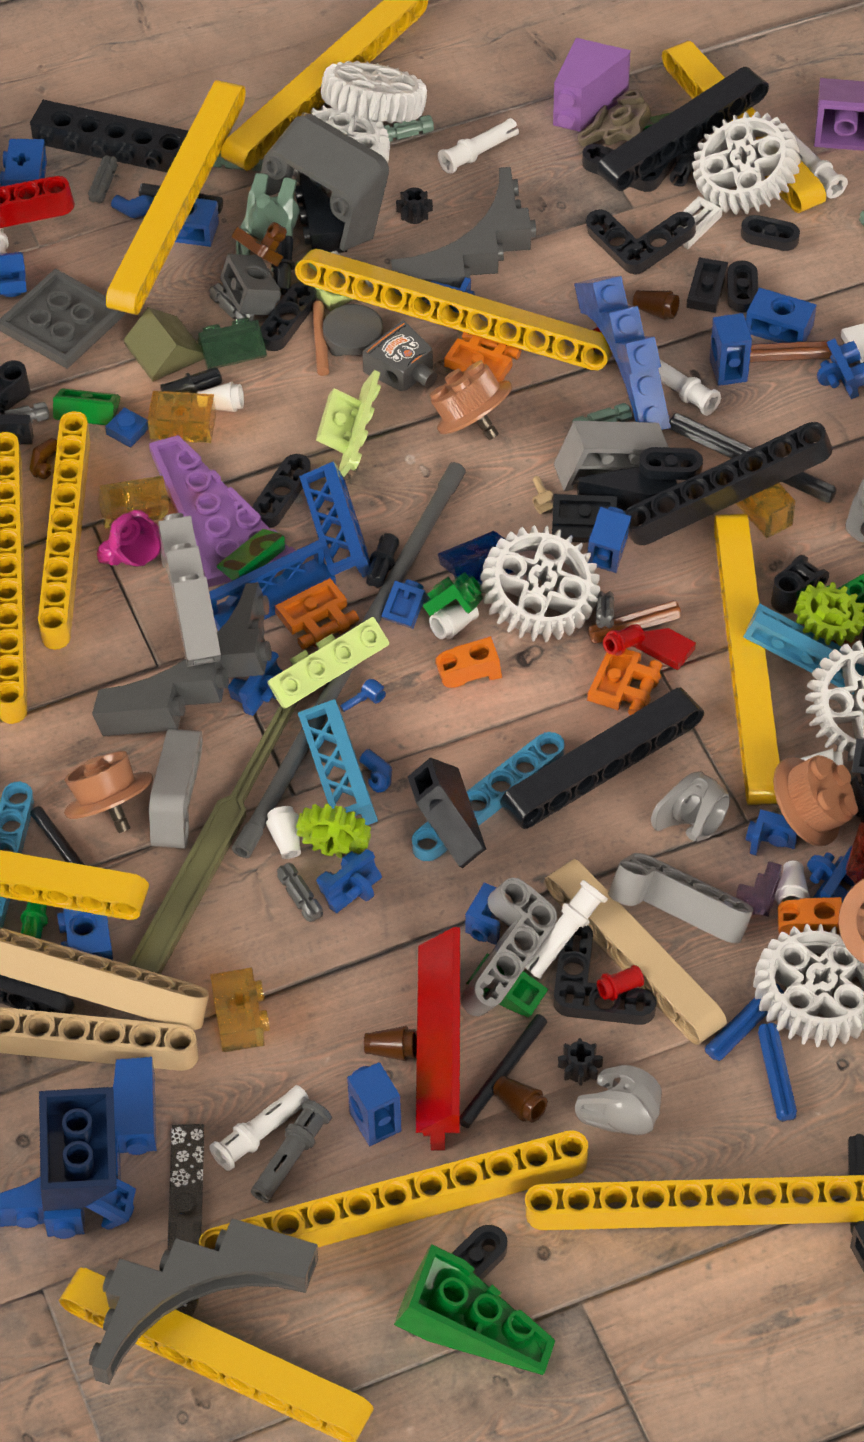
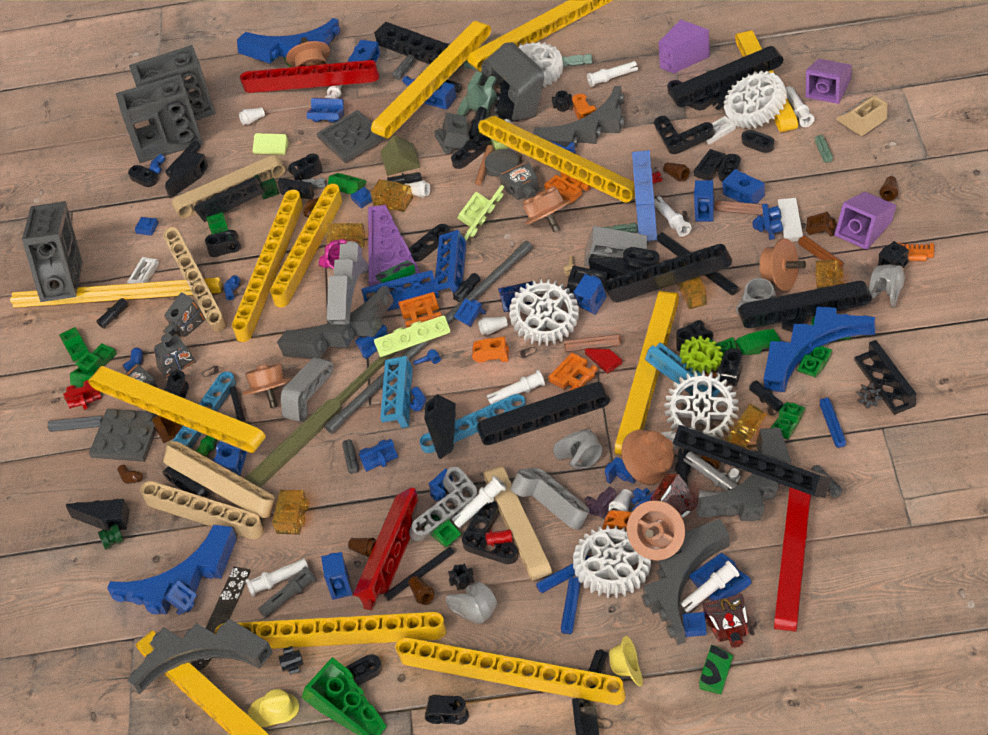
camera: 25 degrees right, 5 degrees down
(76, 1147) = (165, 563): dark blue slope -> none
(231, 343) = (434, 161): clear green bracket -> none
(266, 247) = (465, 110): reddish brown piece -> none
(282, 826) = (355, 419): white cone -> none
(333, 830) = (375, 425): lime gear -> none
(349, 1353) = (274, 708): none -> light yellow piece
(350, 1265) = (291, 660): none -> black gear
(373, 92) = (561, 37): white gear -> none
(453, 214) = (581, 106): none -> orange leg
(462, 588) = (497, 310): green bracket -> none
(551, 714) = (524, 385): none -> white pin
(605, 610) = (576, 333): dark grey axle -> none
(618, 641) = (577, 350): red pin -> none
(620, 121) = (695, 69): dark tan tile -> none
(644, 1290) = (444, 710): none -> black piece

